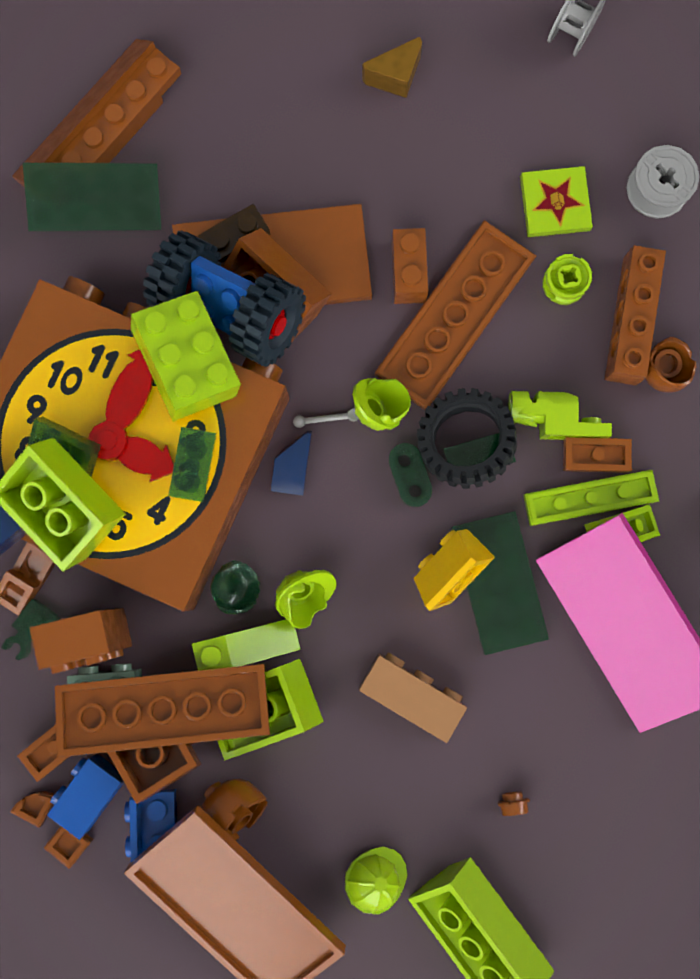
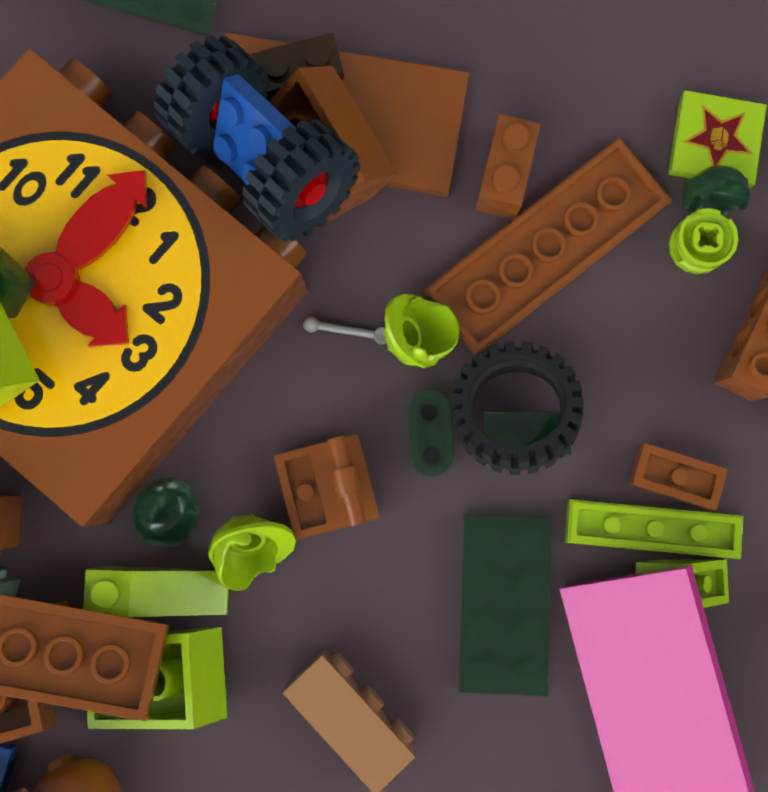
camera: 15 degrees right, 0 degrees up
(184, 355) = (179, 195): lime brick -> none
(192, 464) = (148, 341): clear green plate -> none
(291, 466) = (283, 379): dark blue slope -> none
(346, 535) = (326, 486): none -> dark orange plate
(451, 569) = (446, 570): yellow slope -> none
(556, 415) = (639, 411): lime plate -> none
(565, 238) = (716, 188): none -> clear green hair

